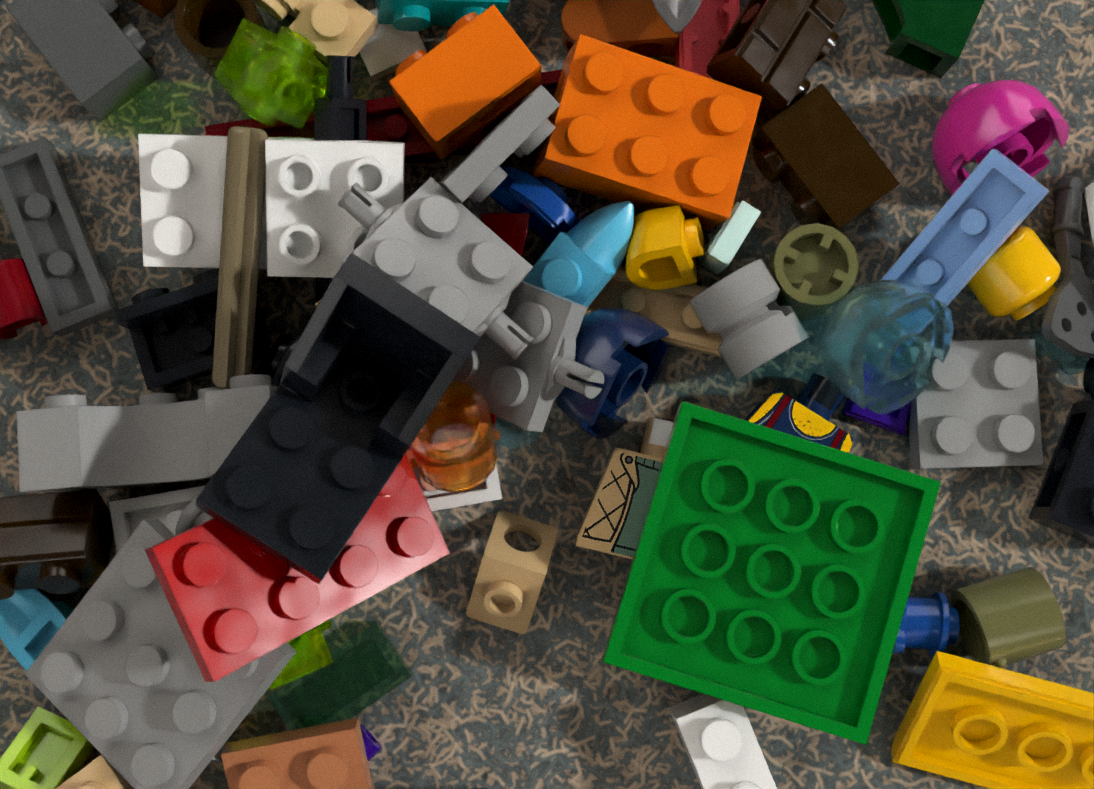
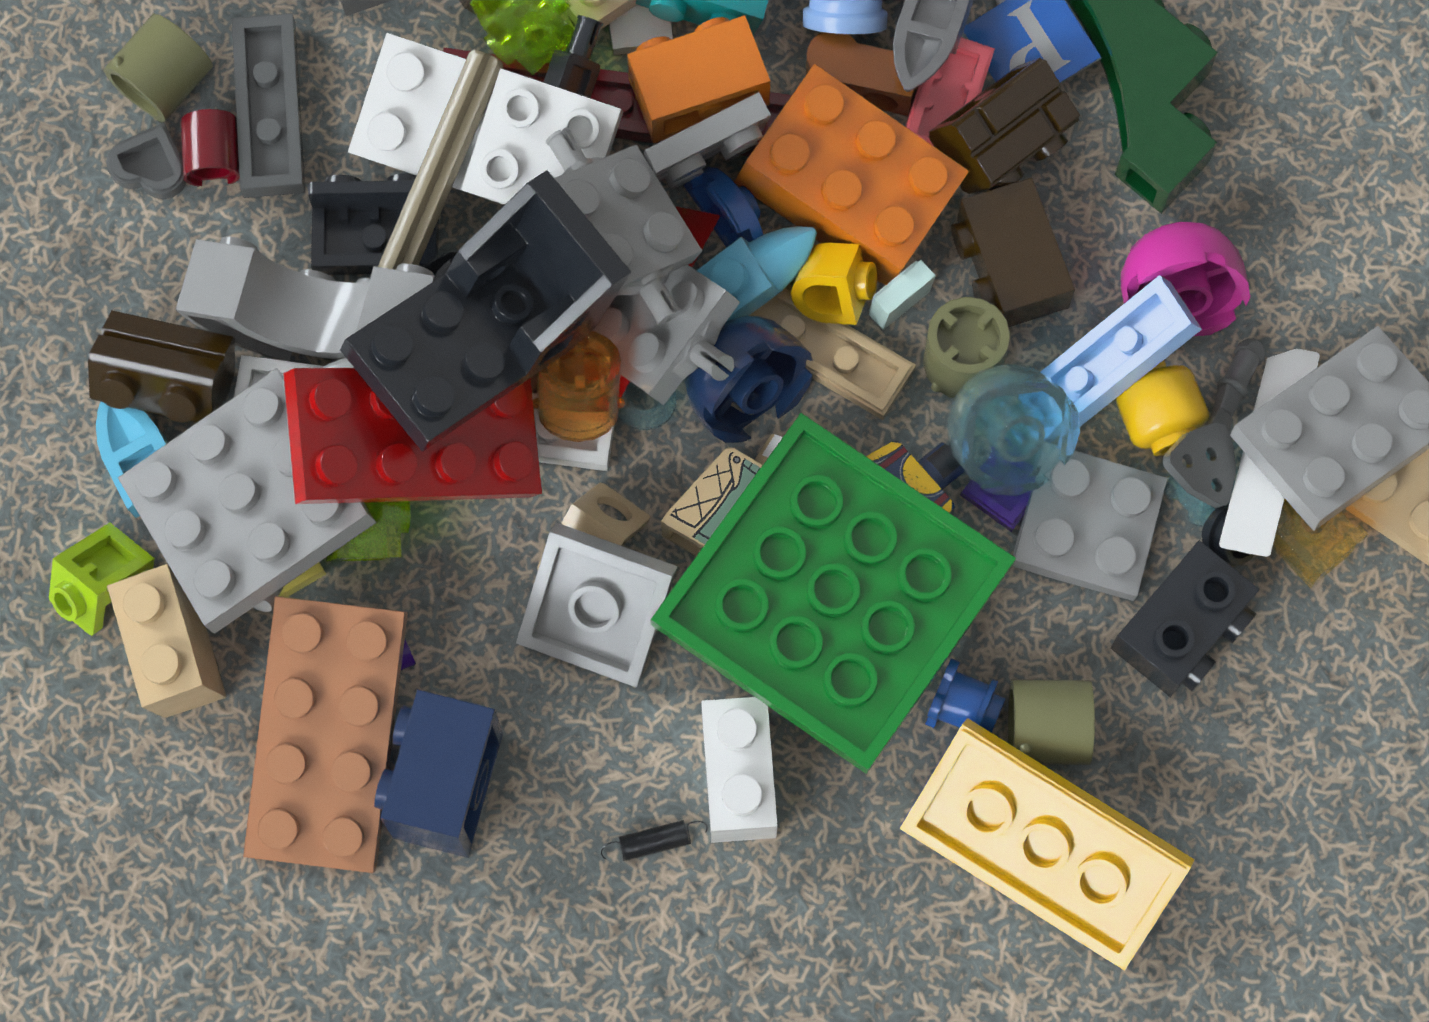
camera: 20 degrees right, 10 degrees down
(359, 676) = (419, 584): clear green tile -> none
(539, 645) = (595, 604): none -> light grey plate
(748, 318) = (889, 358): light grey wheel -> none

